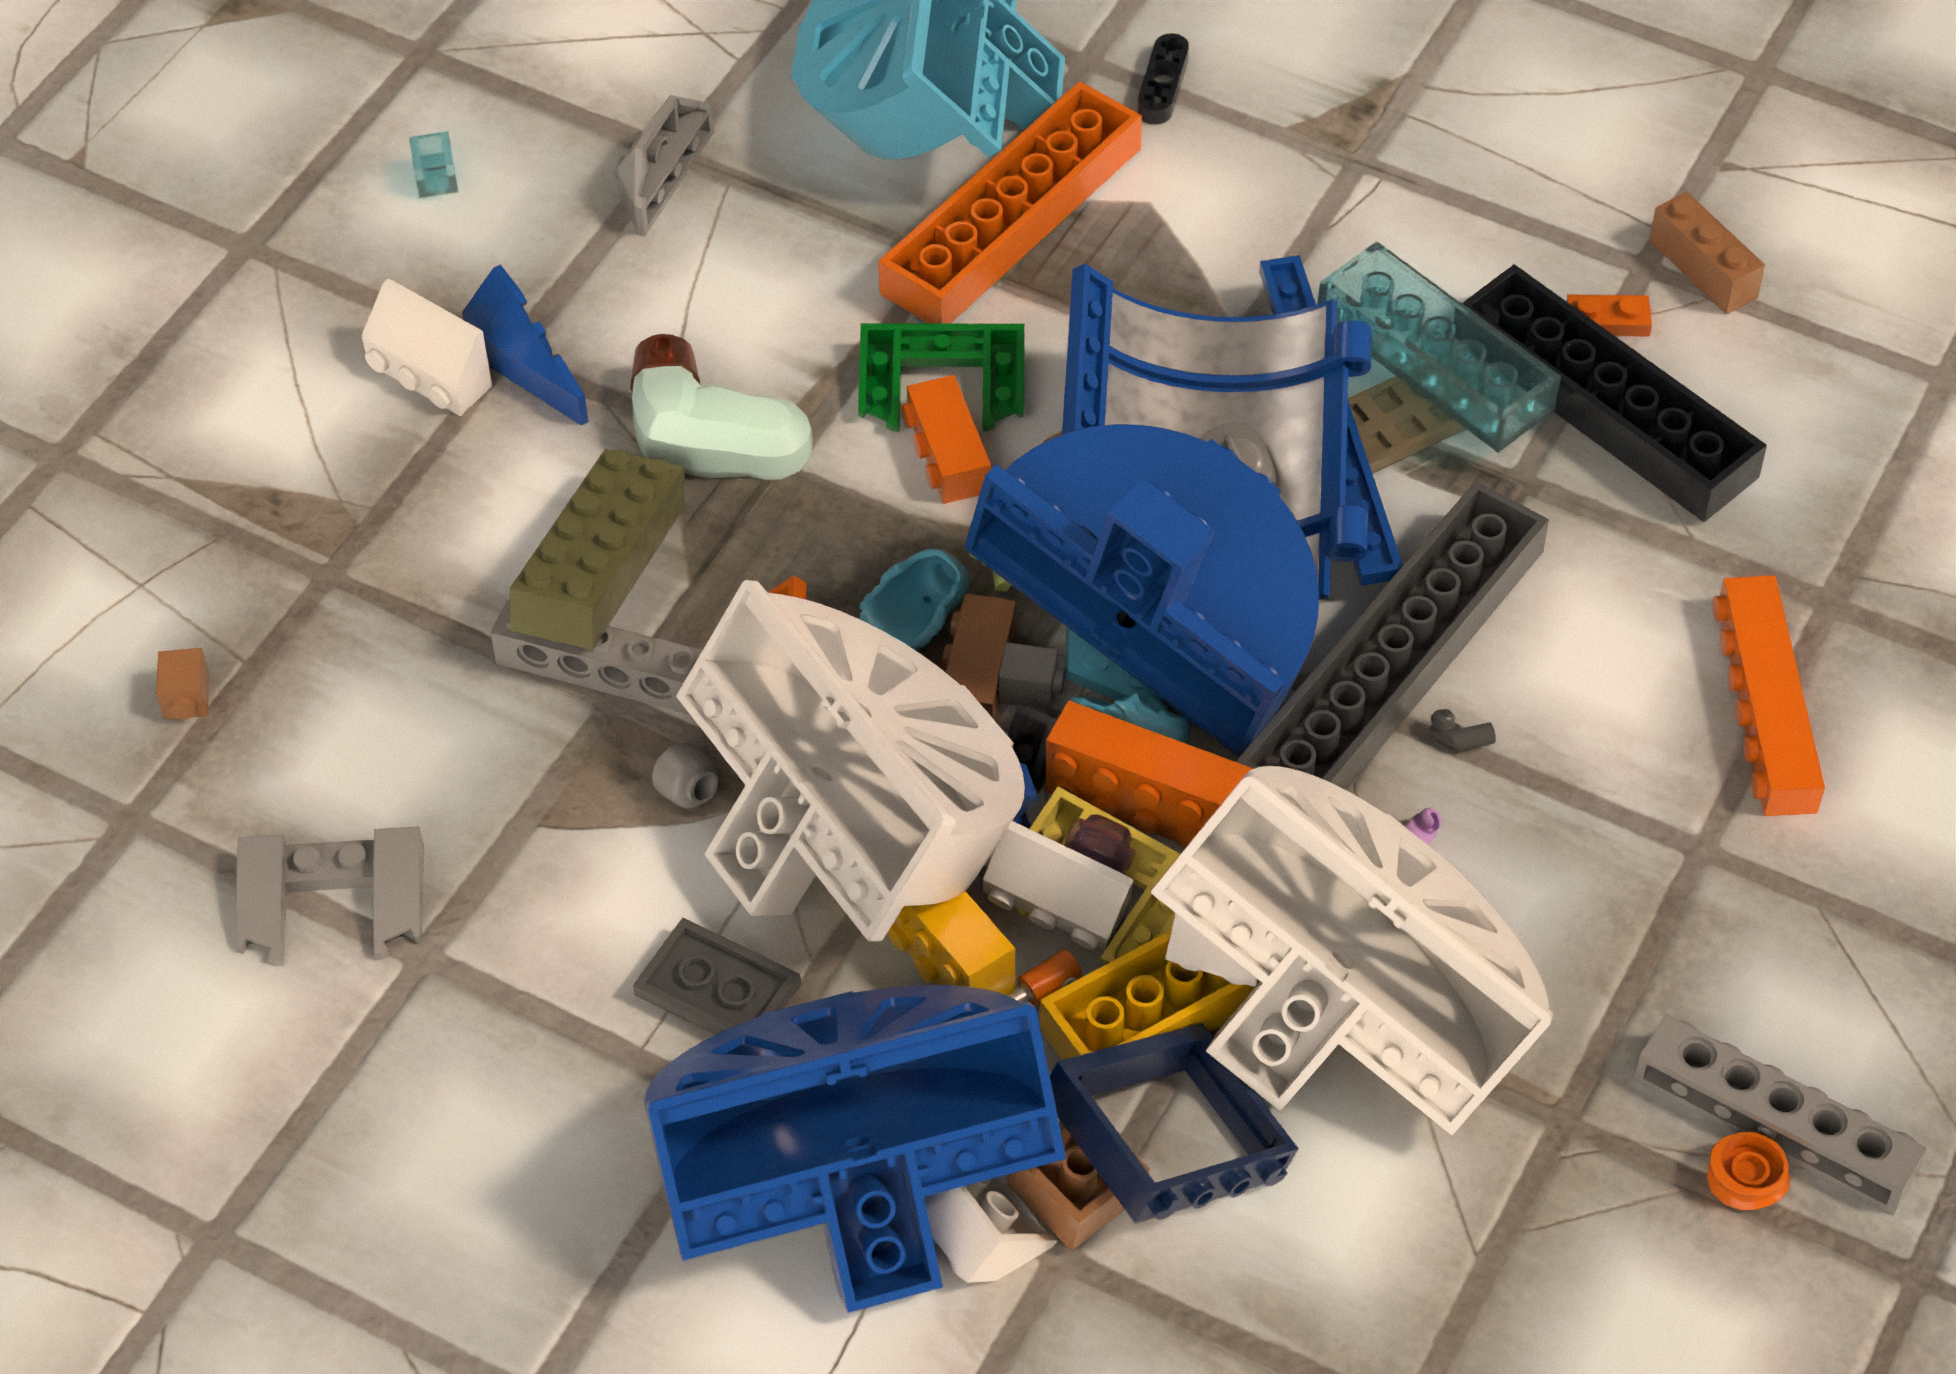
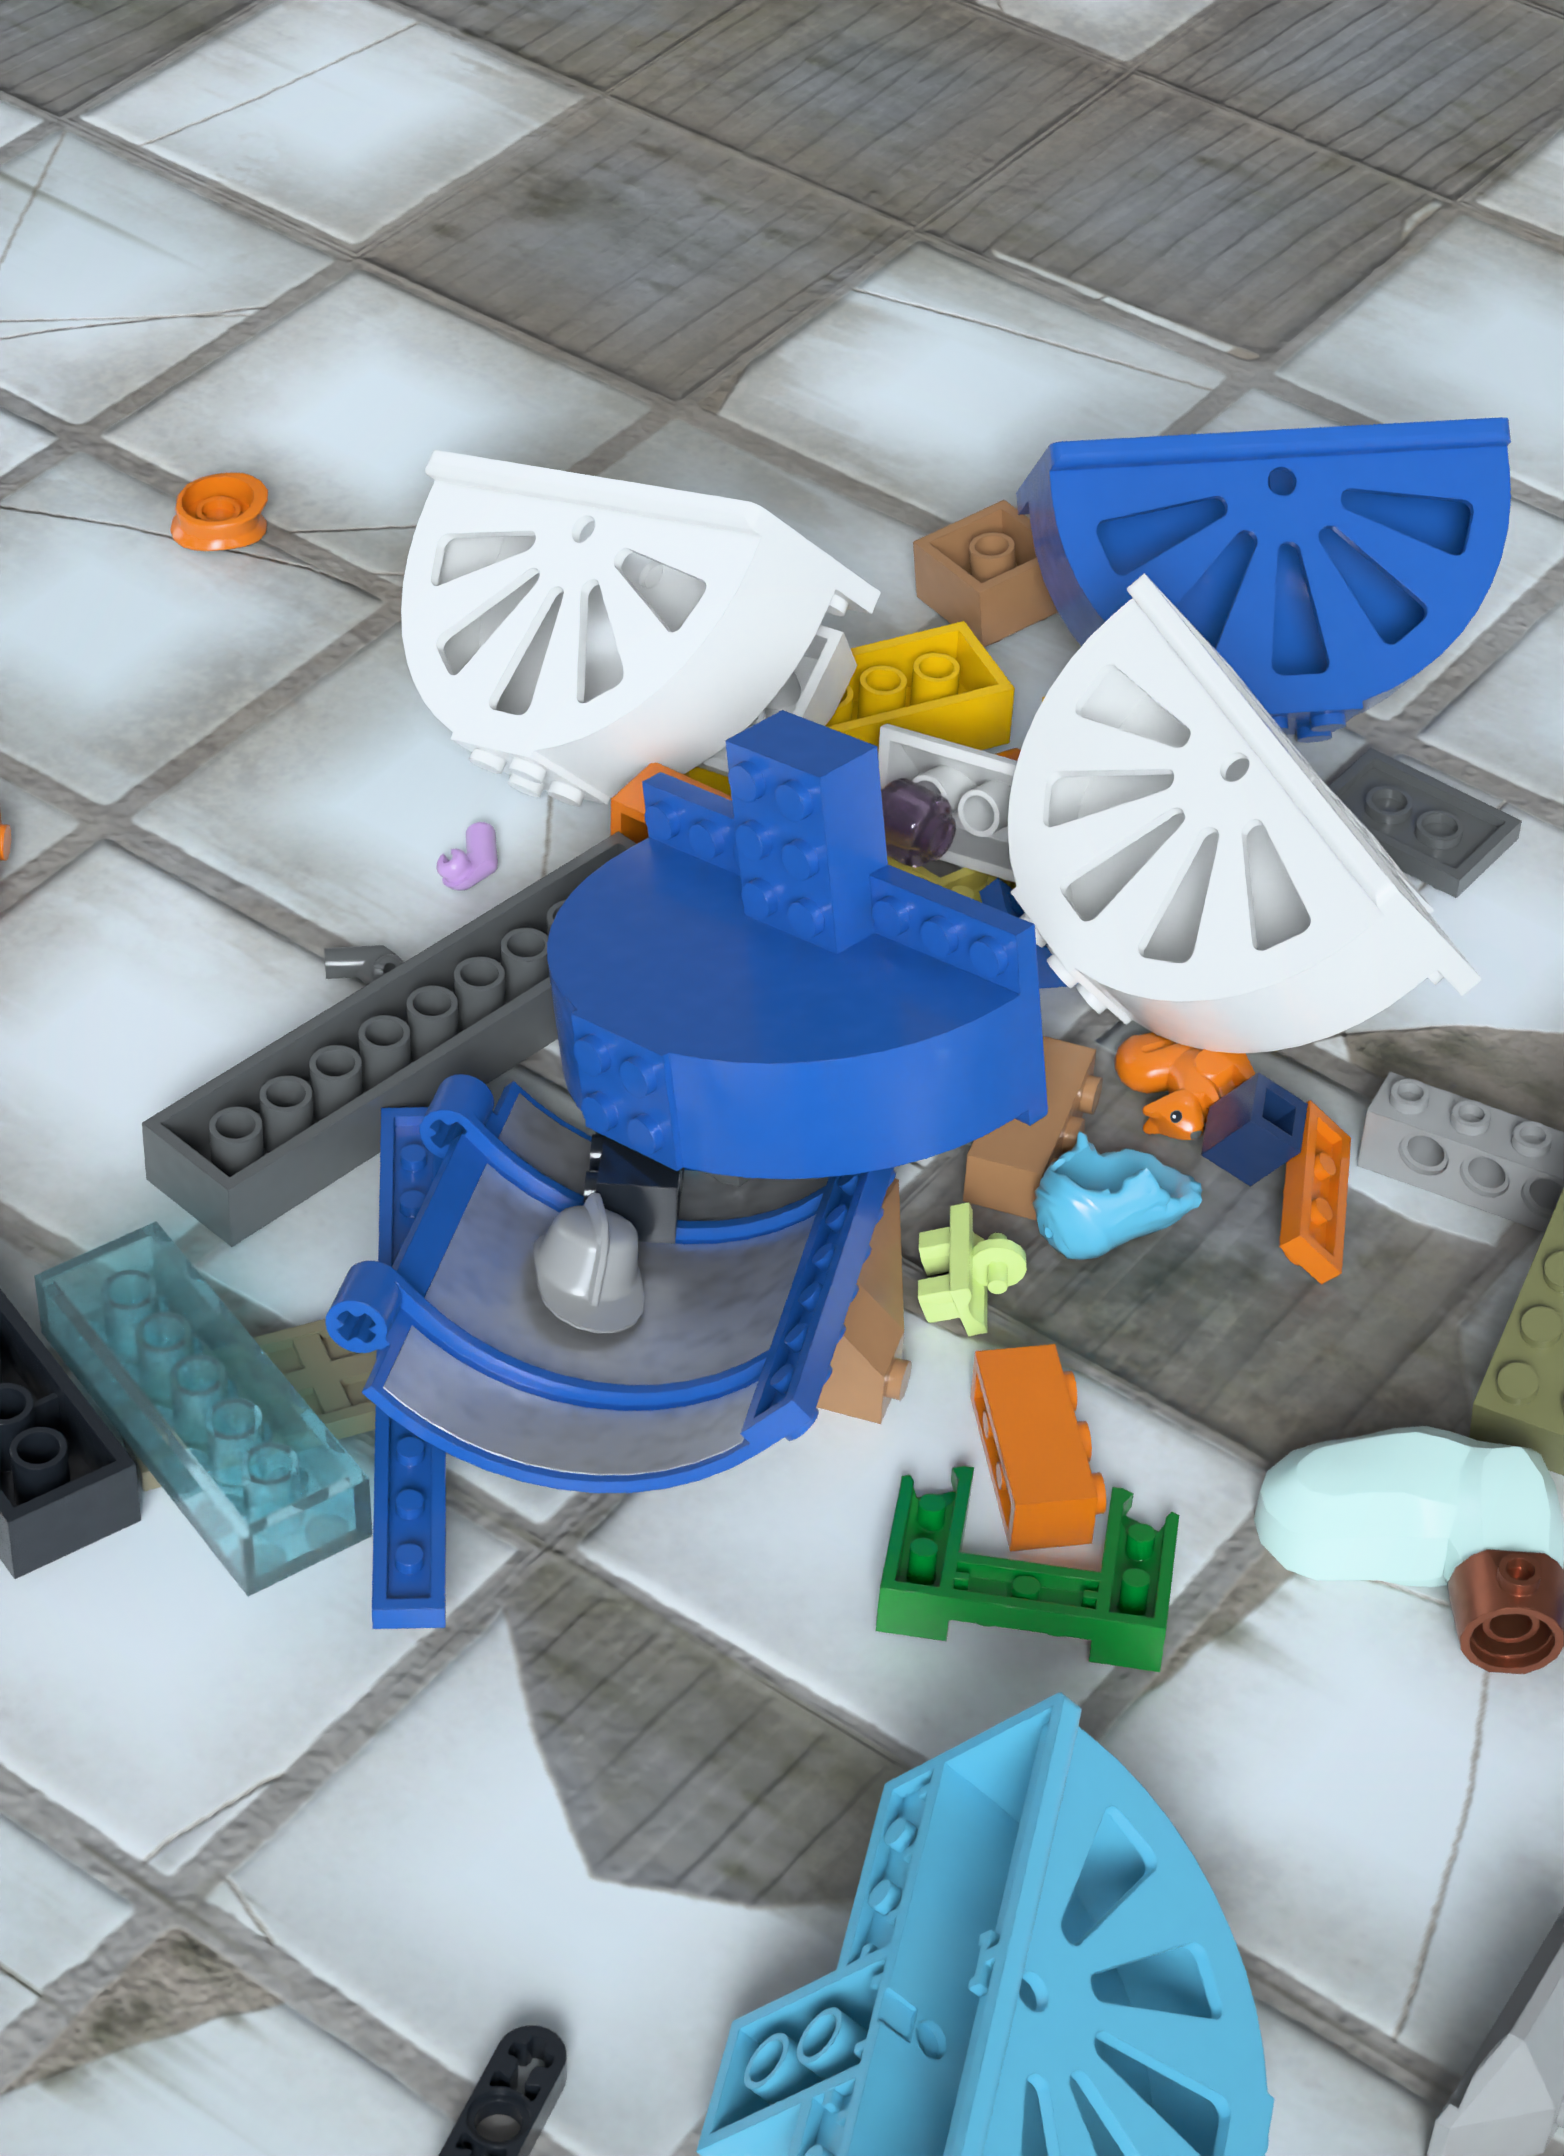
camera: 175 degrees left, 10 degrees down
(685, 776) = (1459, 1037): light grey head -> none
(1010, 205) = (775, 1882): orange brick -> none
(1153, 1057) = (887, 495): dark blue window -> none
(1832, 1156) = (163, 547): light grey brick -> none

